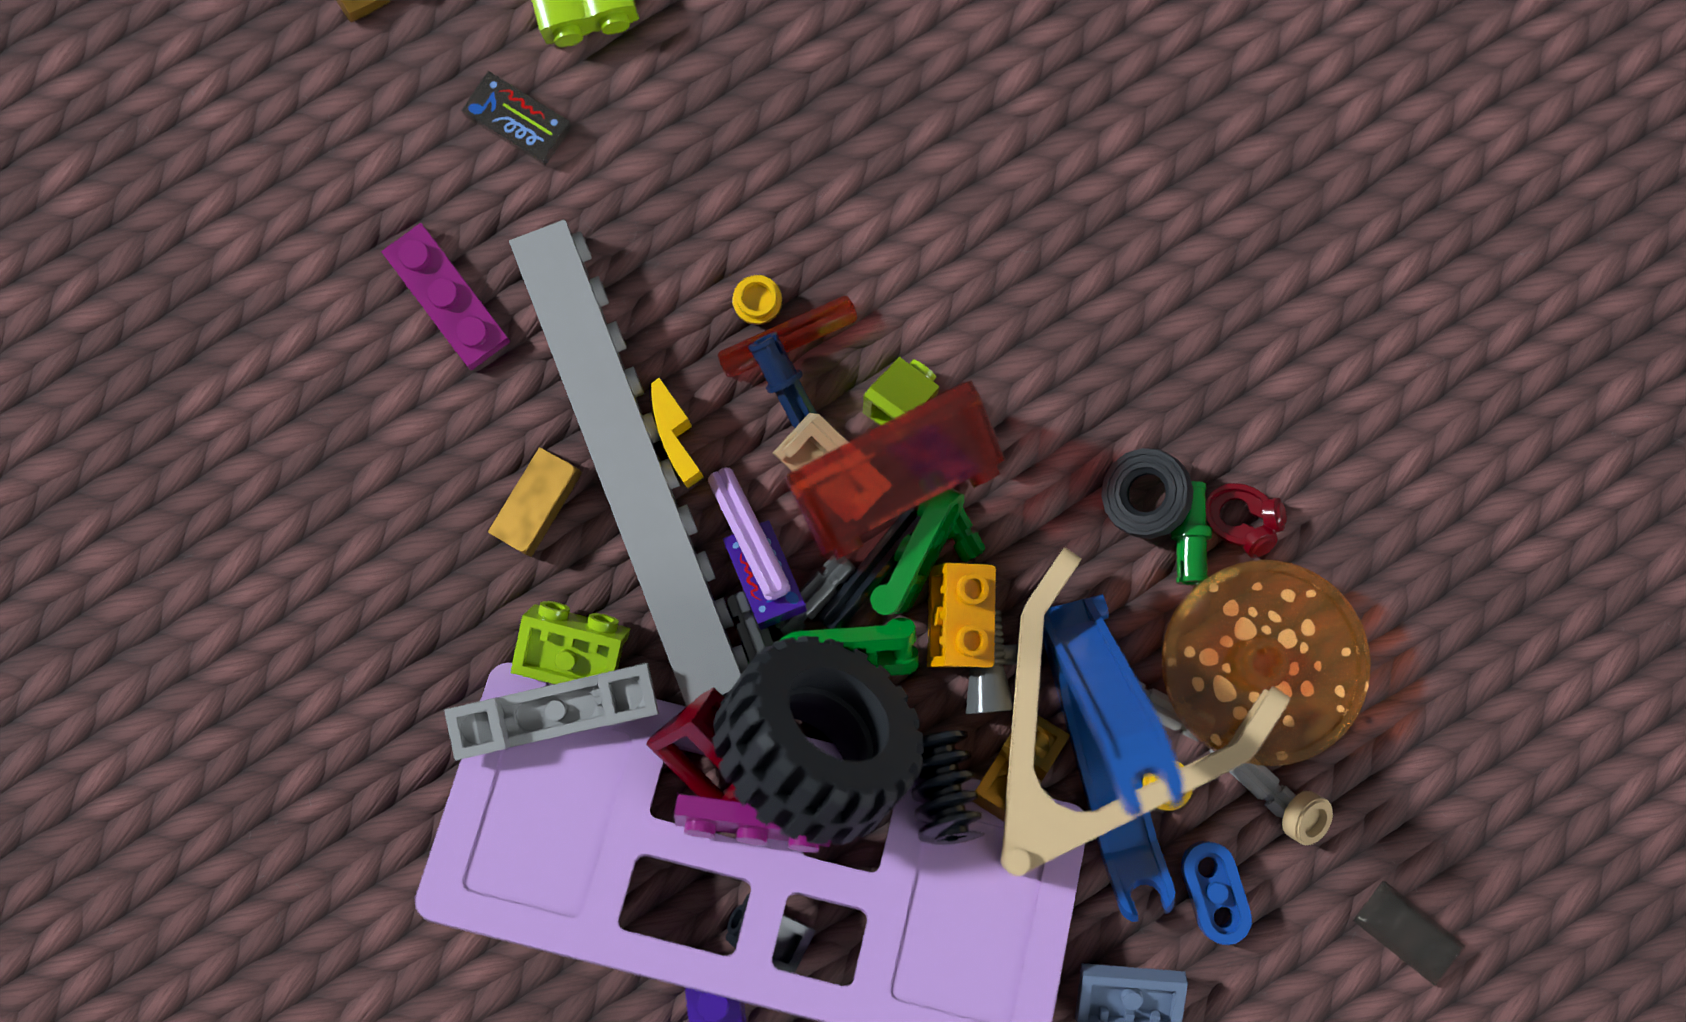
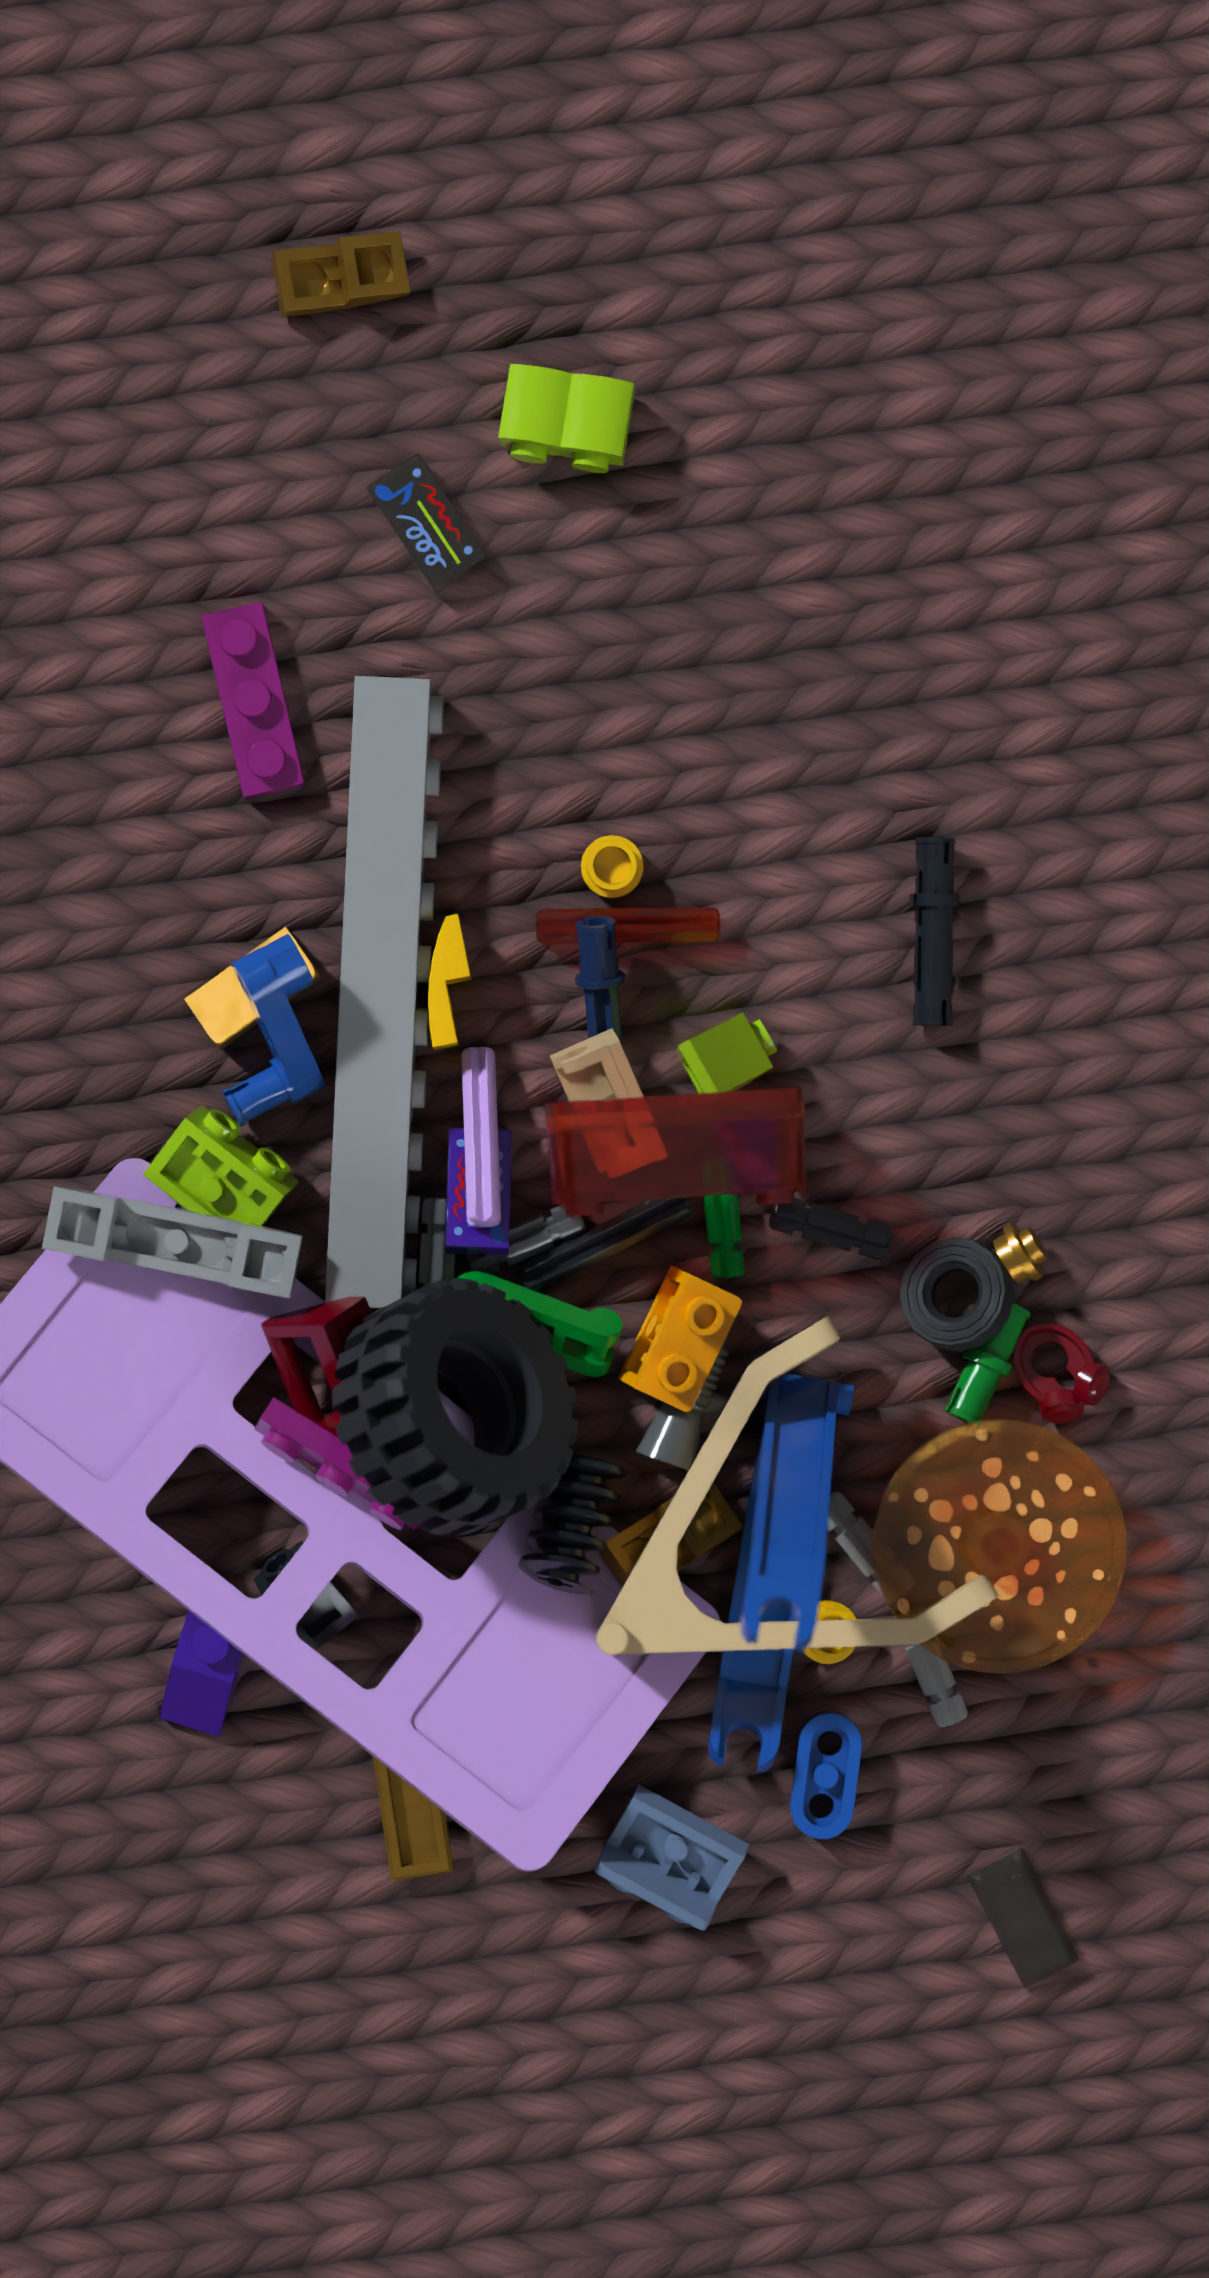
camera: 25 degrees right, 5 degrees up
(537, 485) = (267, 981): none -> blue beam
(918, 553) = (661, 1249): green plate -> none
(1005, 234) = (934, 920): none -> black pin
(1032, 487) = (831, 1228): none -> black axle
(1179, 443) = (1021, 1252): none -> pearl gold plate
(1307, 818) = (966, 1739): tan tile -> none

